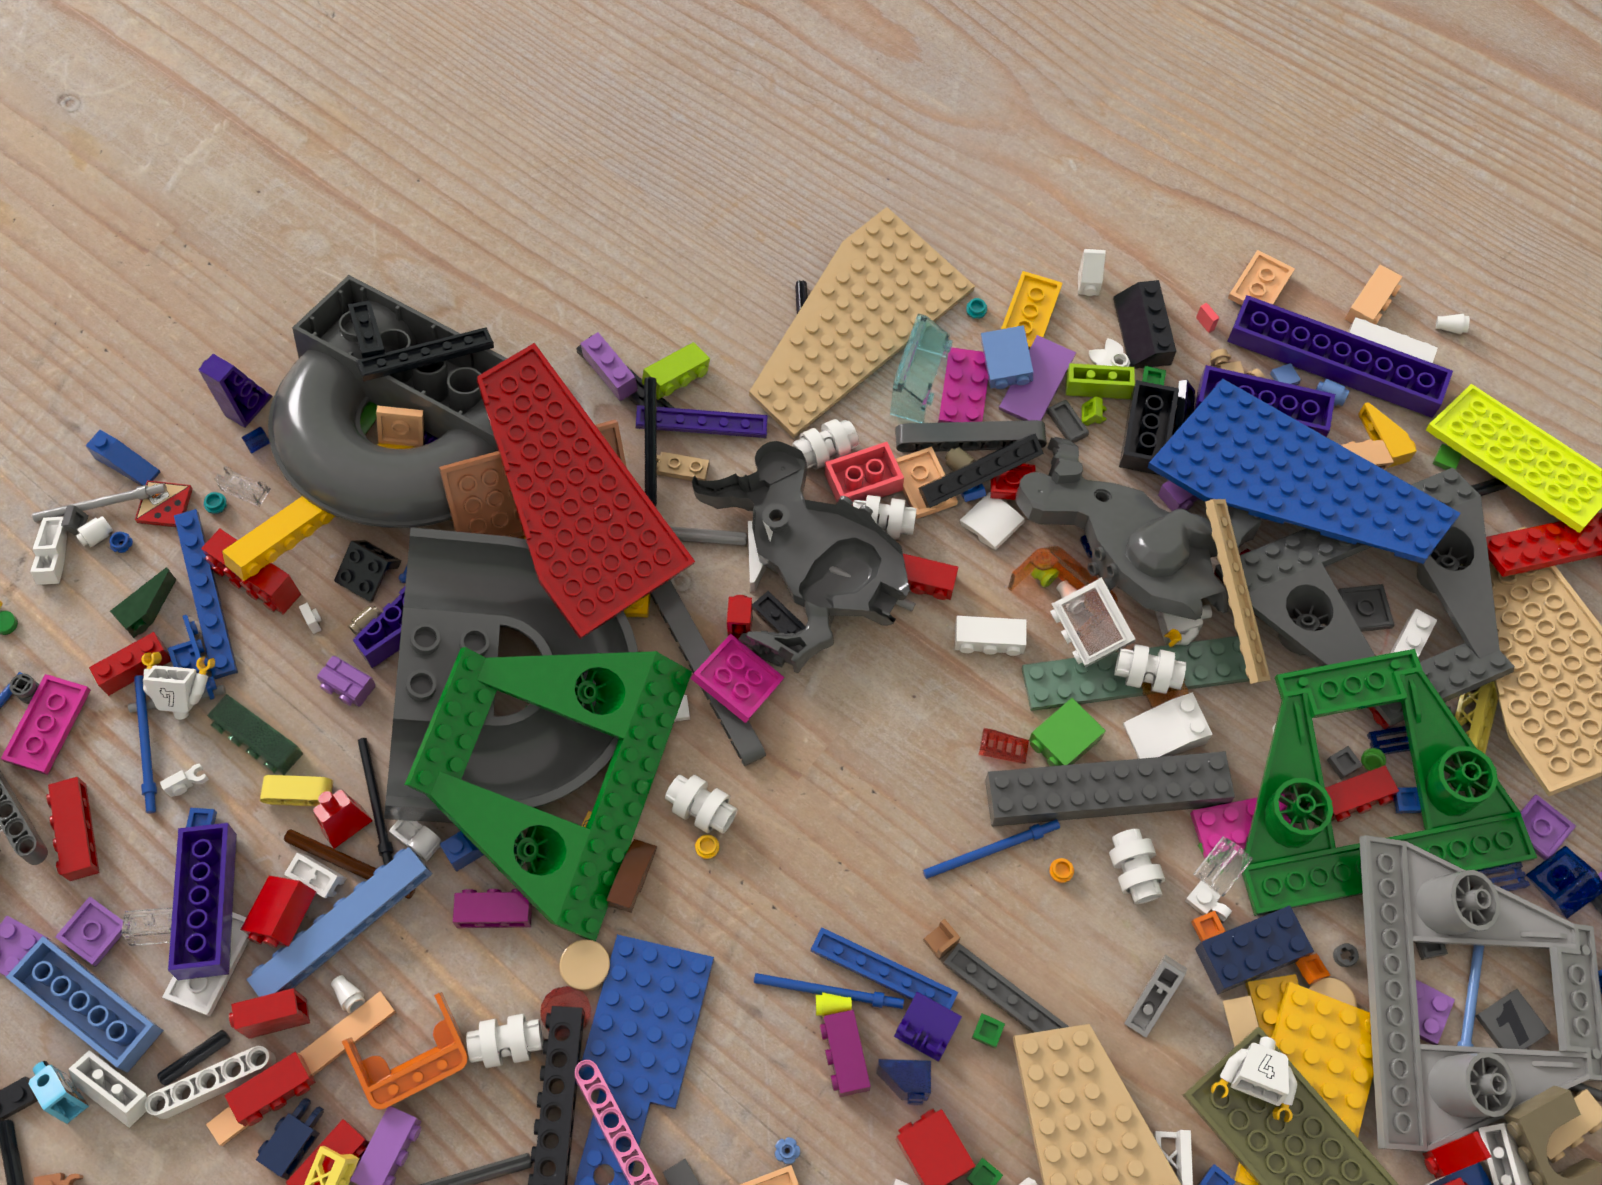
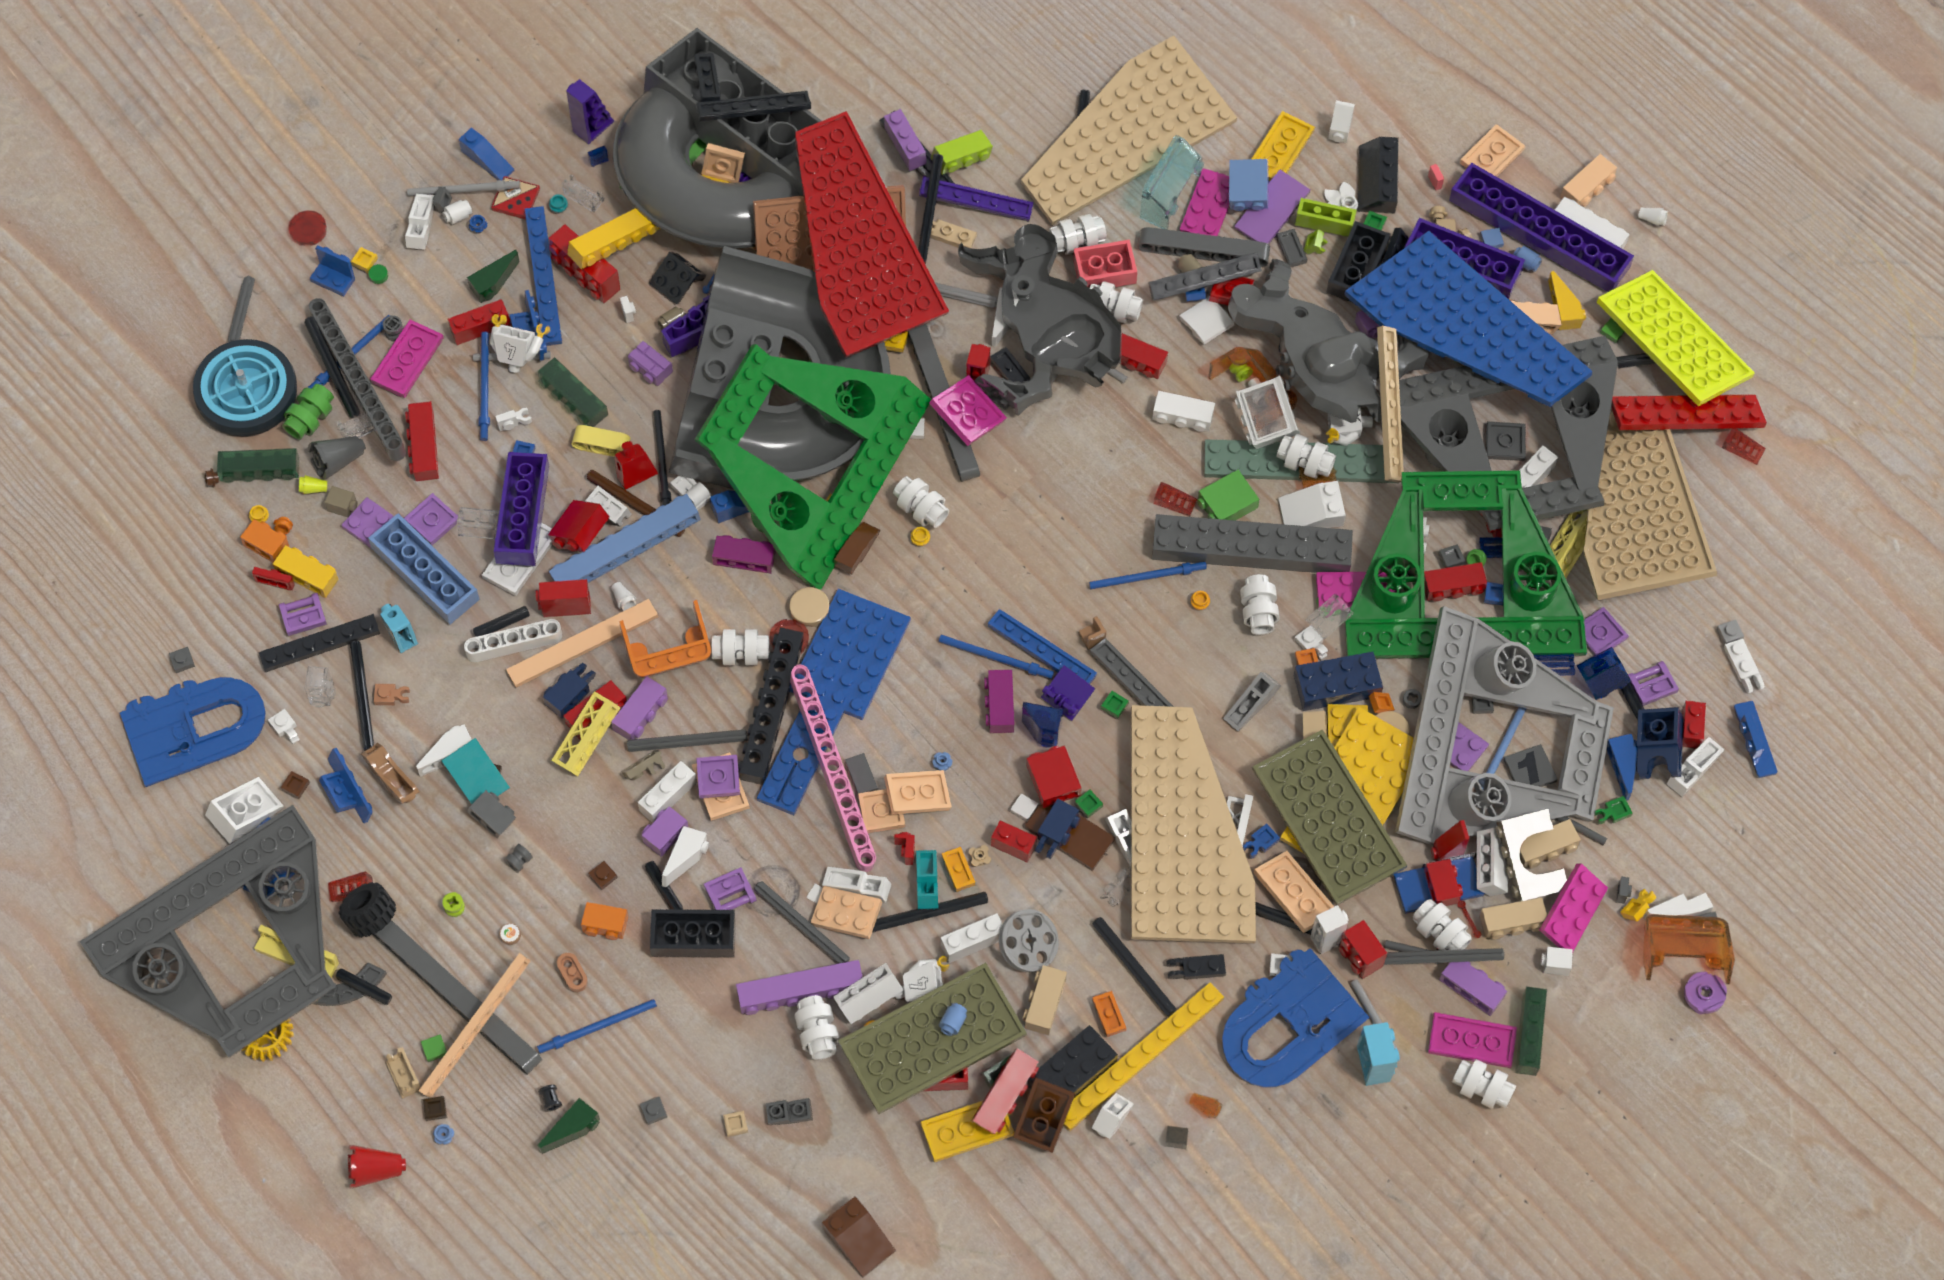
camera: 10 degrees right, 0 degrees up
(108, 1088) = (437, 631): white brick -> none
(270, 1089) = (558, 651): red brick -> none
(831, 1004) = (995, 663): neon yellow cone -> none
(919, 470) = (1150, 268): light nougat plate -> none
(976, 308) = (1234, 138): teal plate -> none
(1261, 1074) = (1313, 758): white torso -> none

